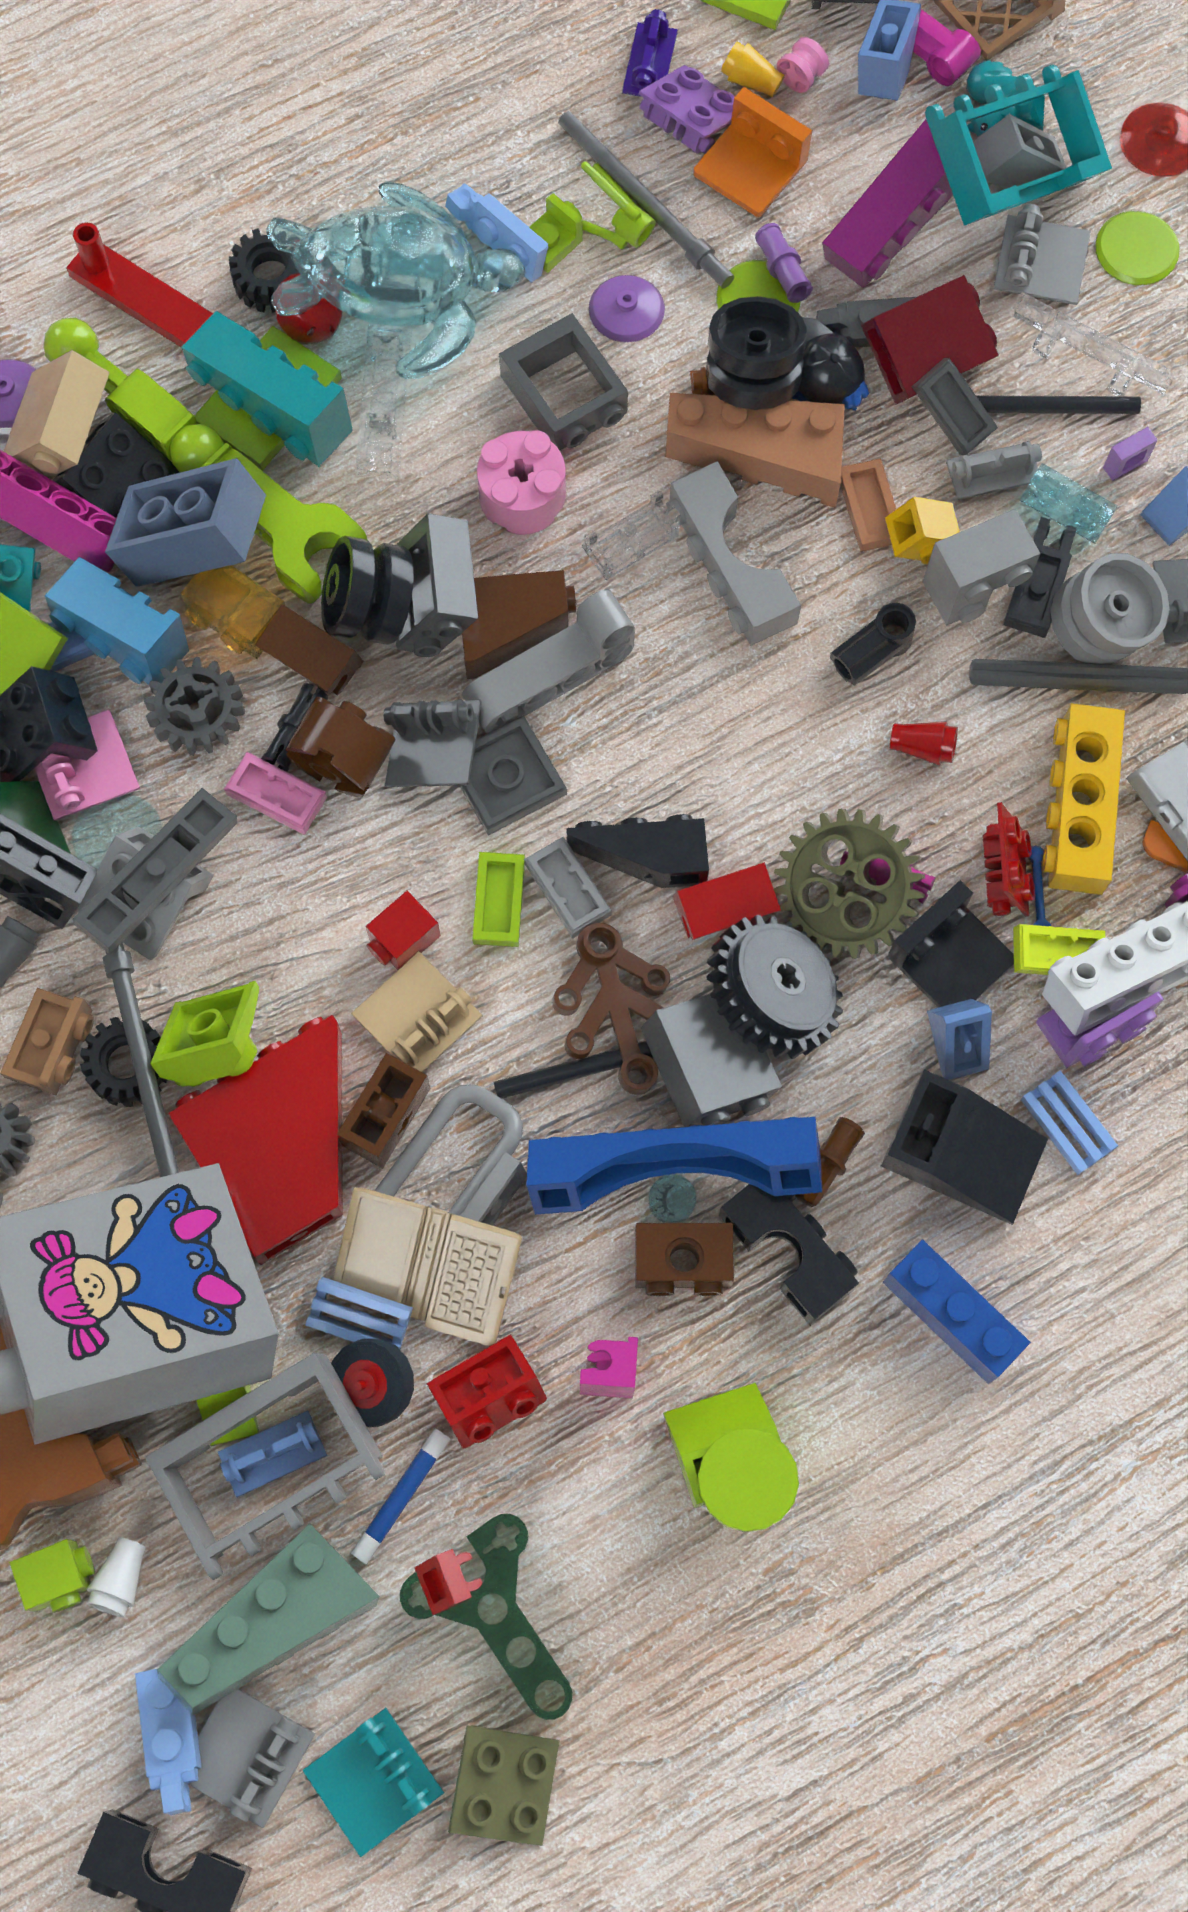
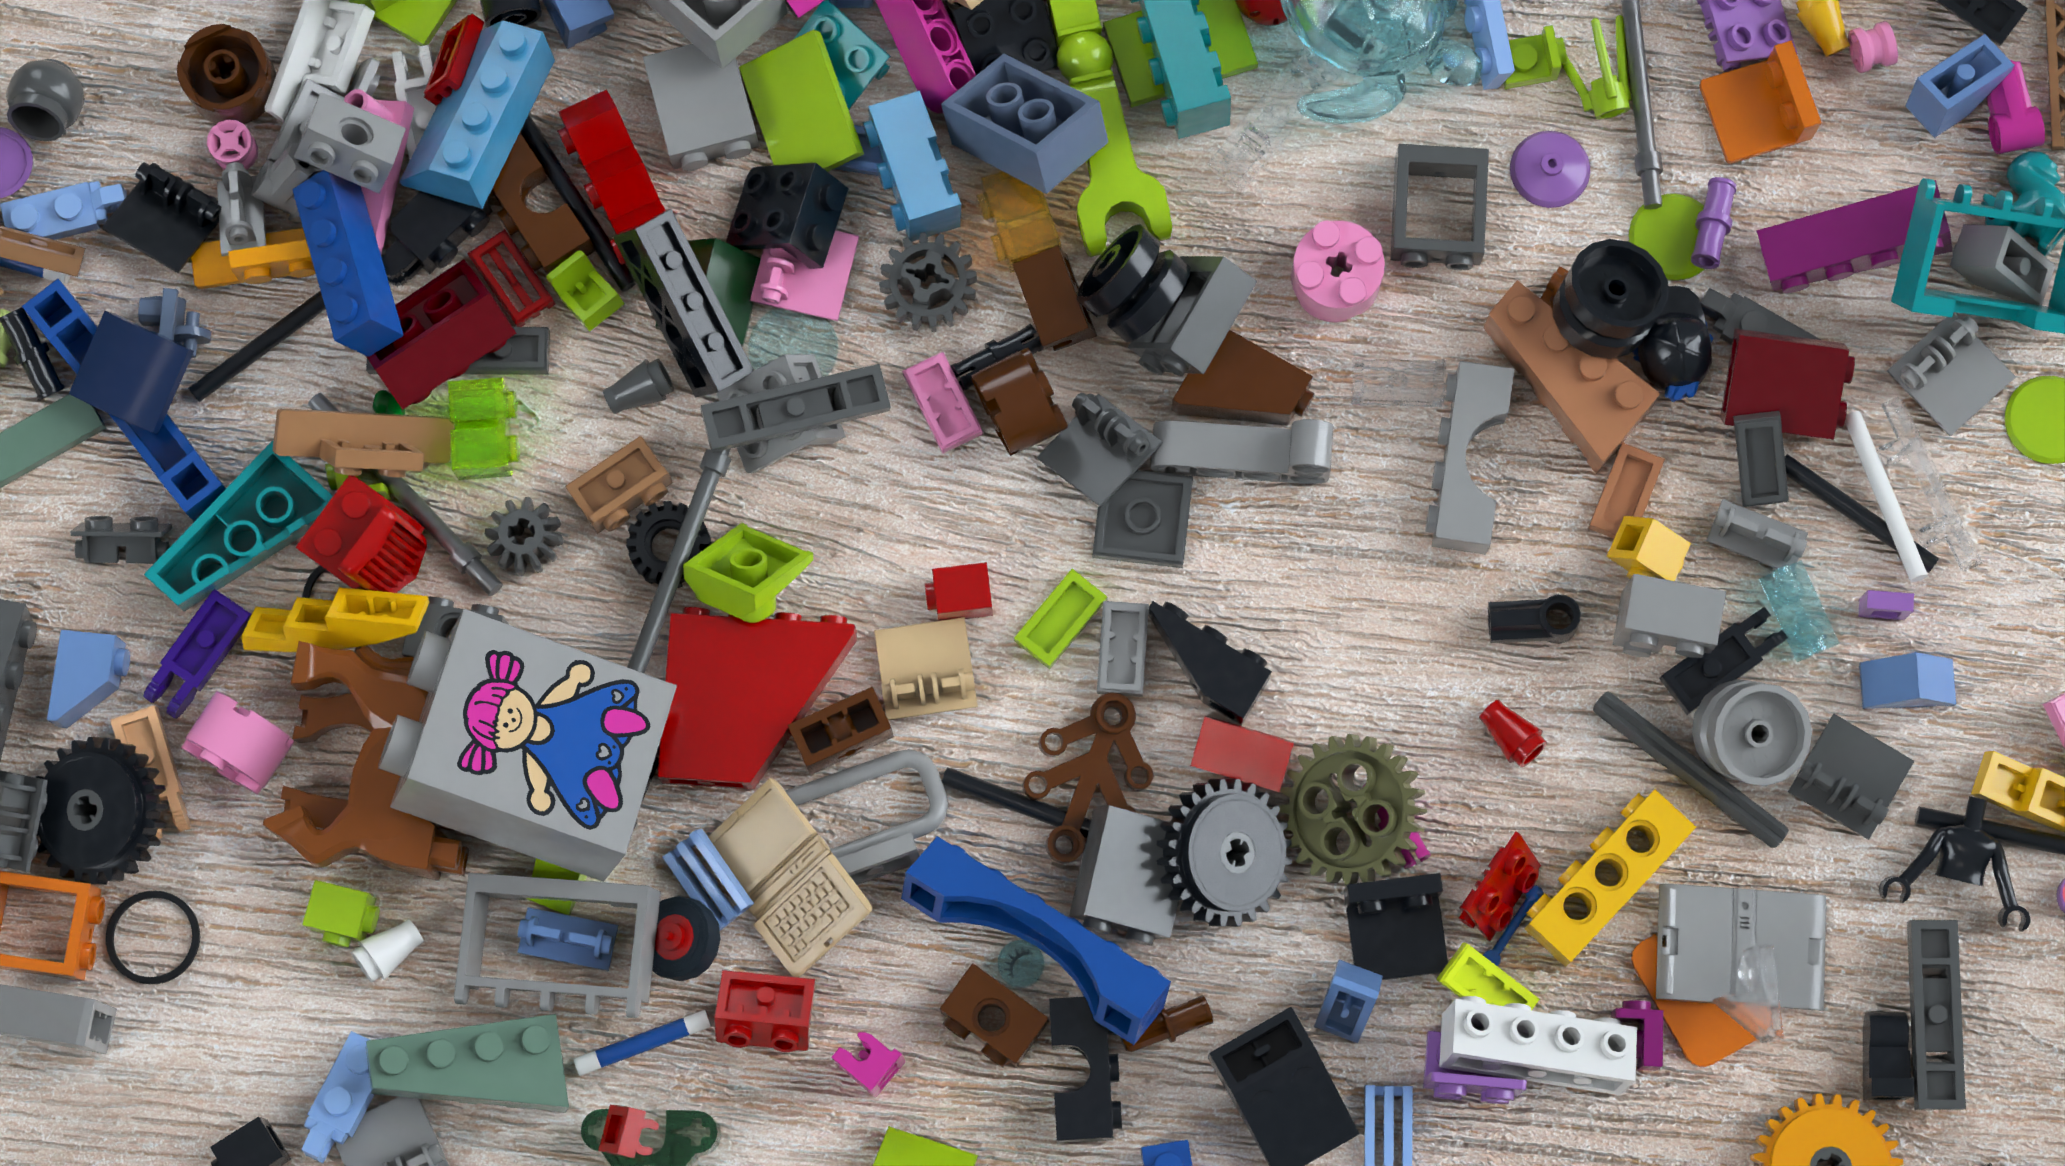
camera: 40 degrees right, 5 degrees up
(1069, 377) = (1885, 497): none -> white bar

